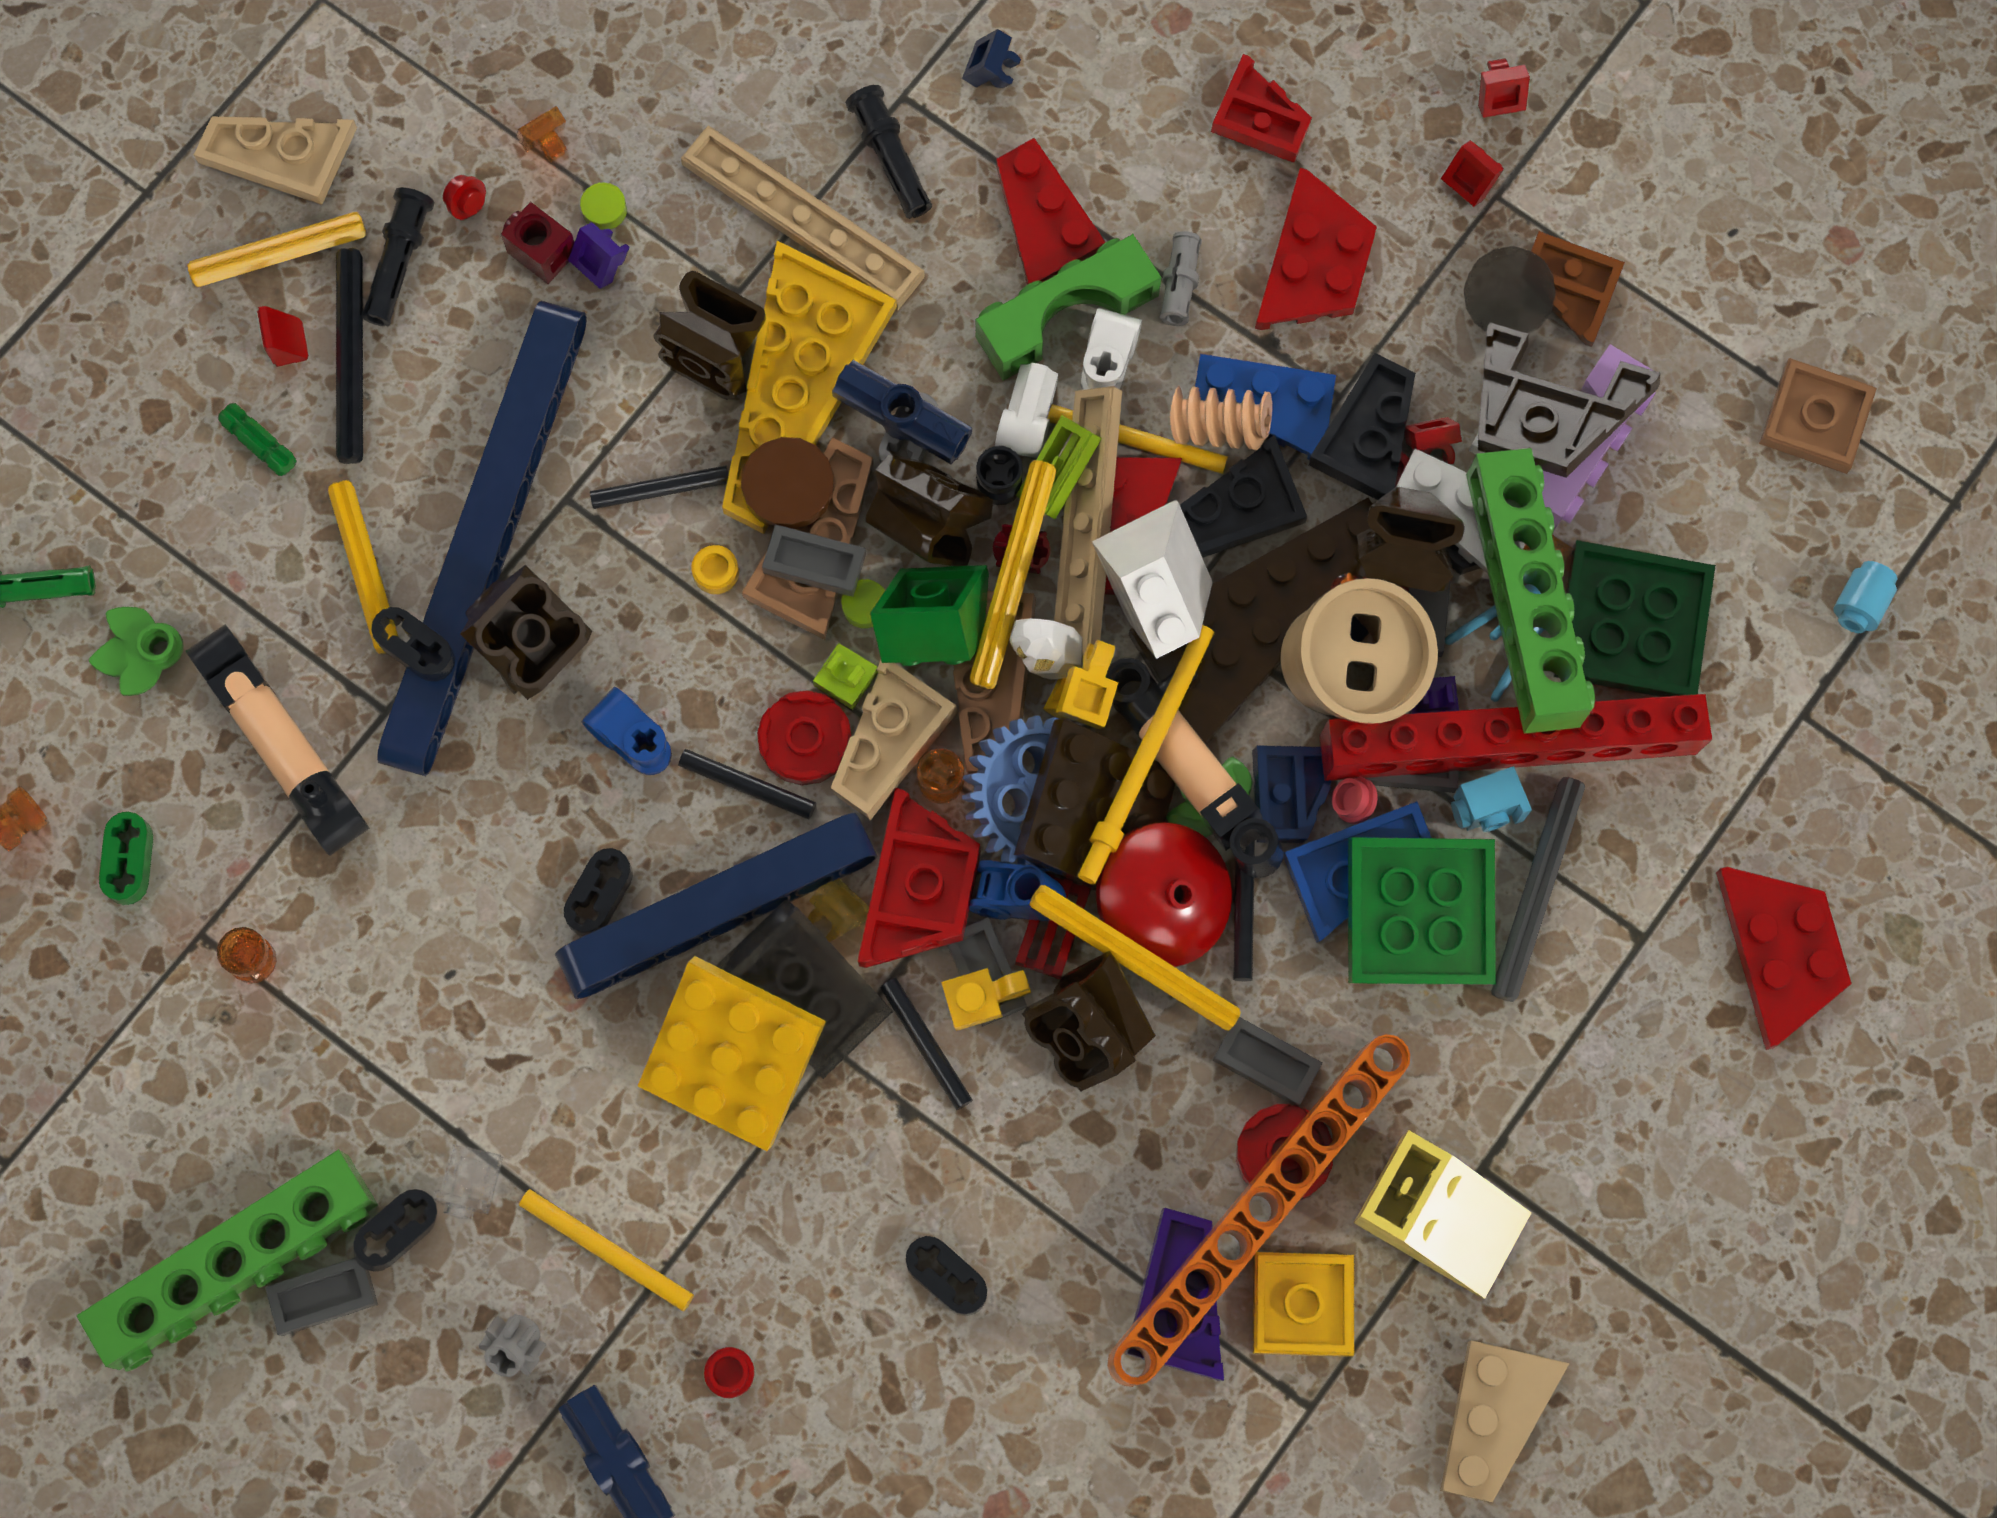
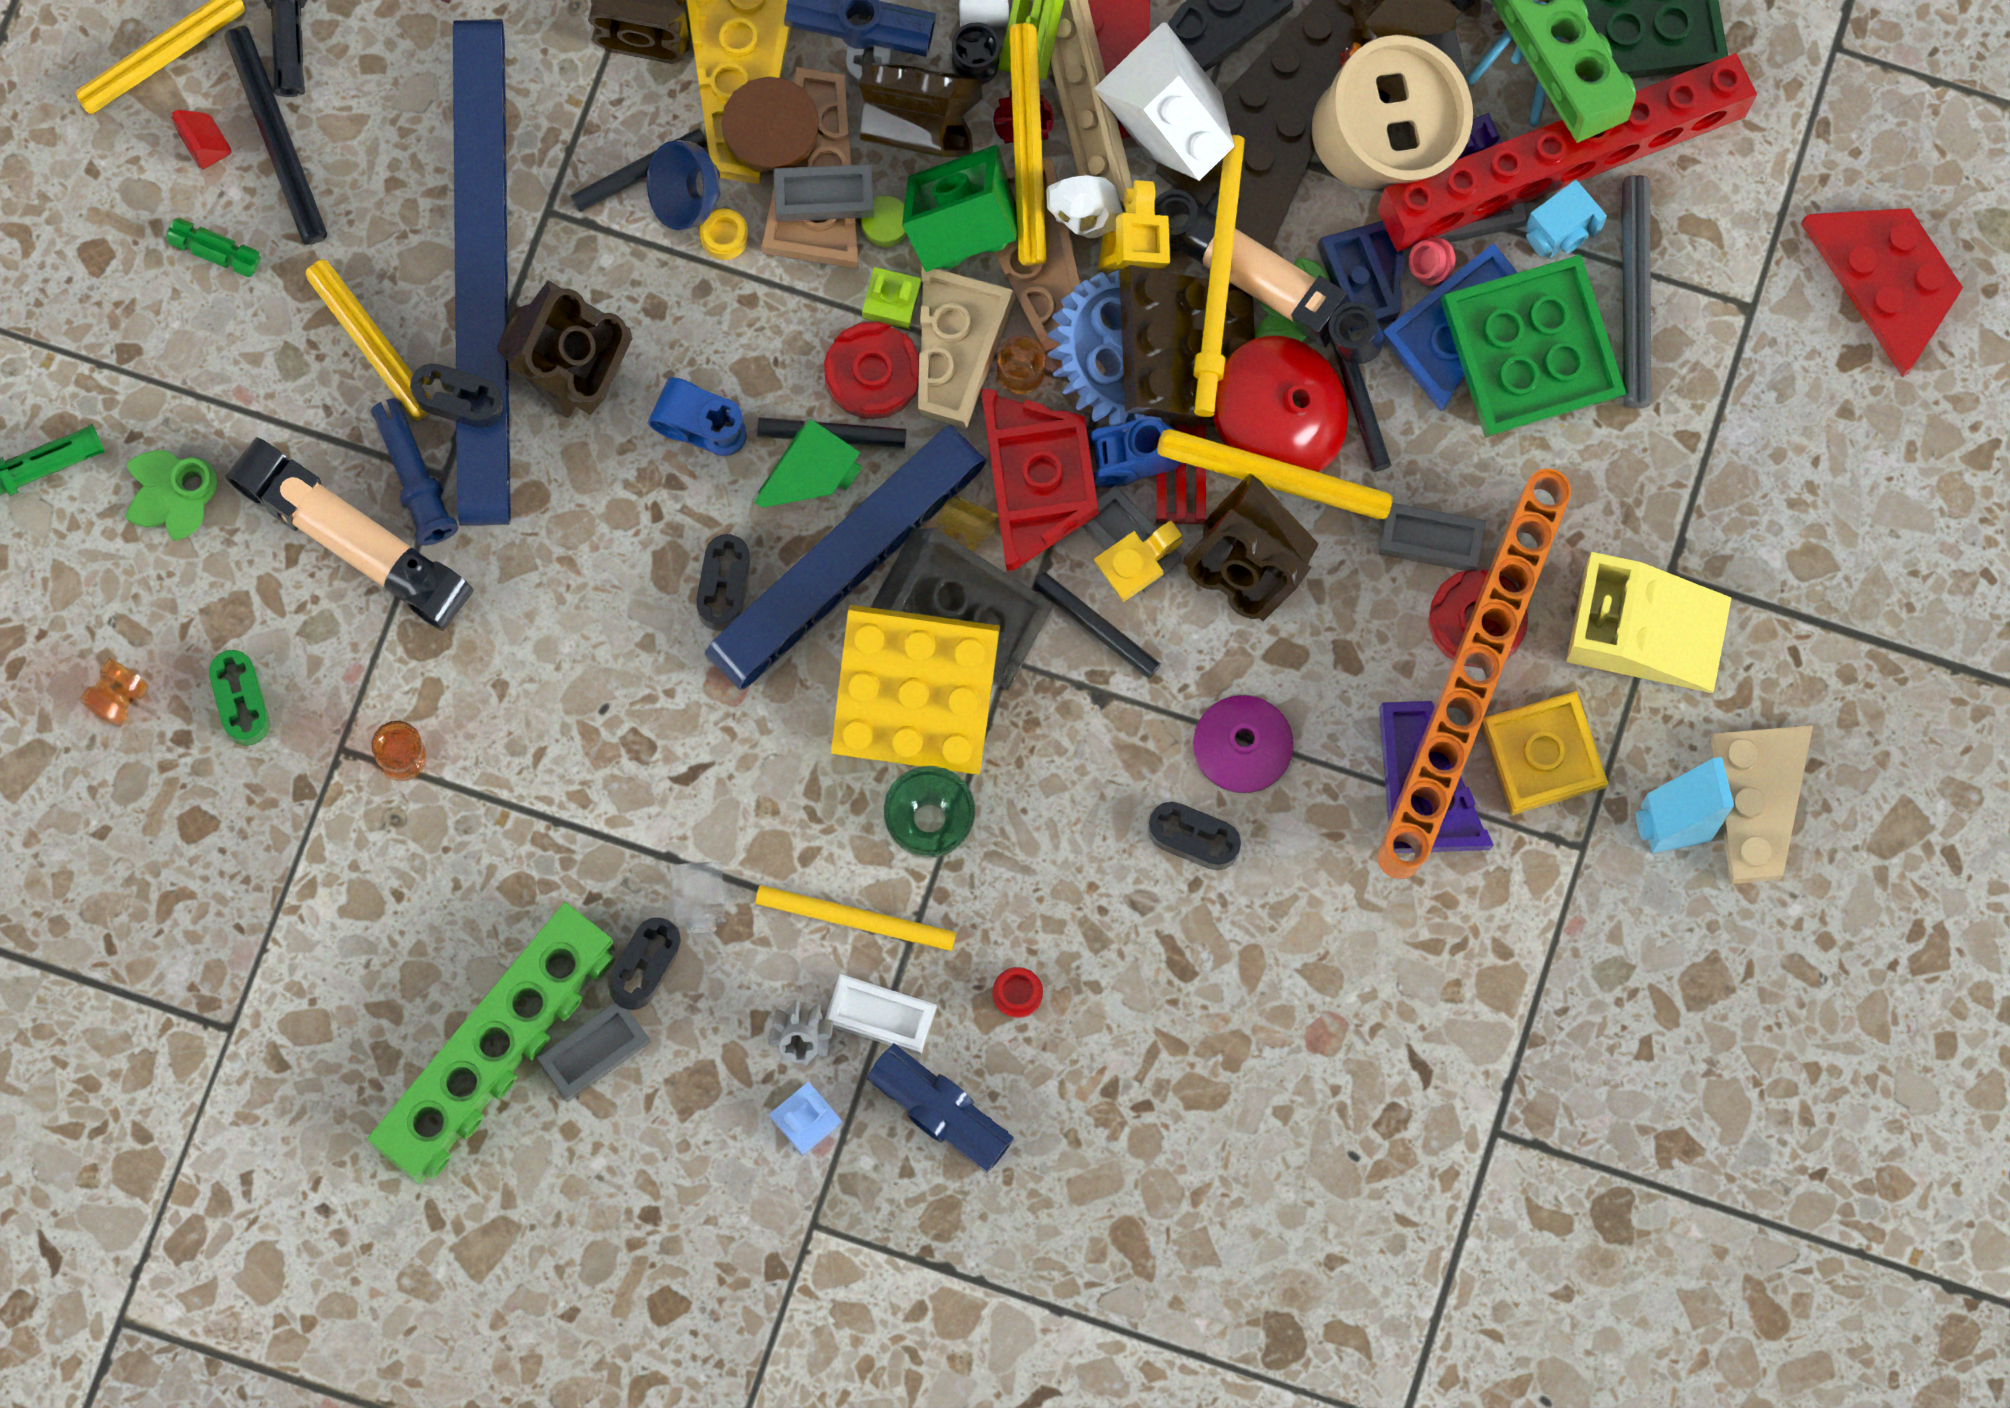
camera: 20 degrees left, 0 degrees up
(355, 719) = (419, 491): none -> dark blue pin
(491, 1427) = (805, 1118): none -> light blue tile
(595, 1350) = (880, 1014): none -> white tile
(690, 1152) = (929, 787): none -> clear green piece
(691, 513) = (673, 184): none -> dark blue piece
(707, 814) = (809, 468): none -> green slope
(1023, 1227) = (1239, 767): none -> magenta dish
(1416, 1410) = (1686, 808): none -> medium azure slope

